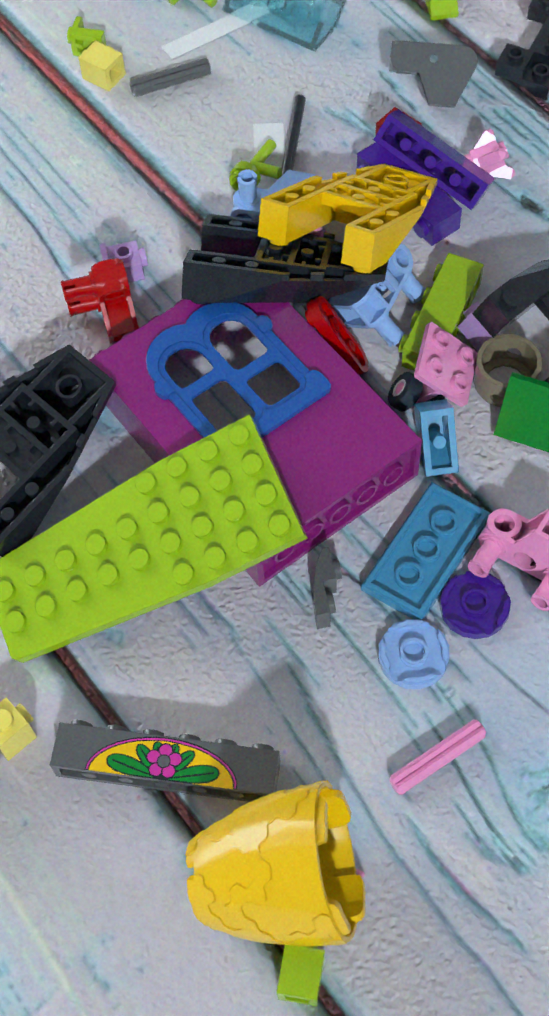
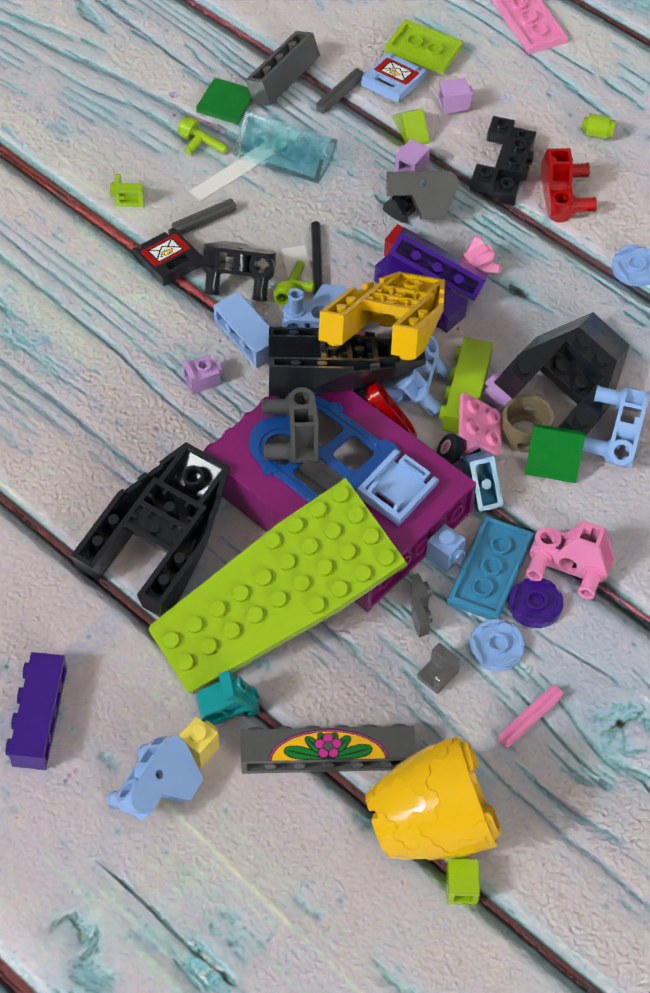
camera: 15 degrees left, 5 degrees down
(56, 678) = (227, 699): none -> teal pin
(102, 65) = (144, 212): light yellow brick -> none
(105, 291) = (203, 402): red piece -> none
(113, 113) = (164, 251): none -> black container
(183, 207) = (244, 327): none -> light blue brick
(192, 130) = (244, 264): none -> black piece
(209, 341) = (303, 426): none -> dark grey piece
(320, 430) = (399, 484): none -> light blue container
(332, 677) = (440, 669): none -> flat silver panel
(371, 518) = (445, 548): none -> light blue brick
(405, 88) = (399, 207): none -> black tile
(432, 28) = (412, 157): none -> lavender brick

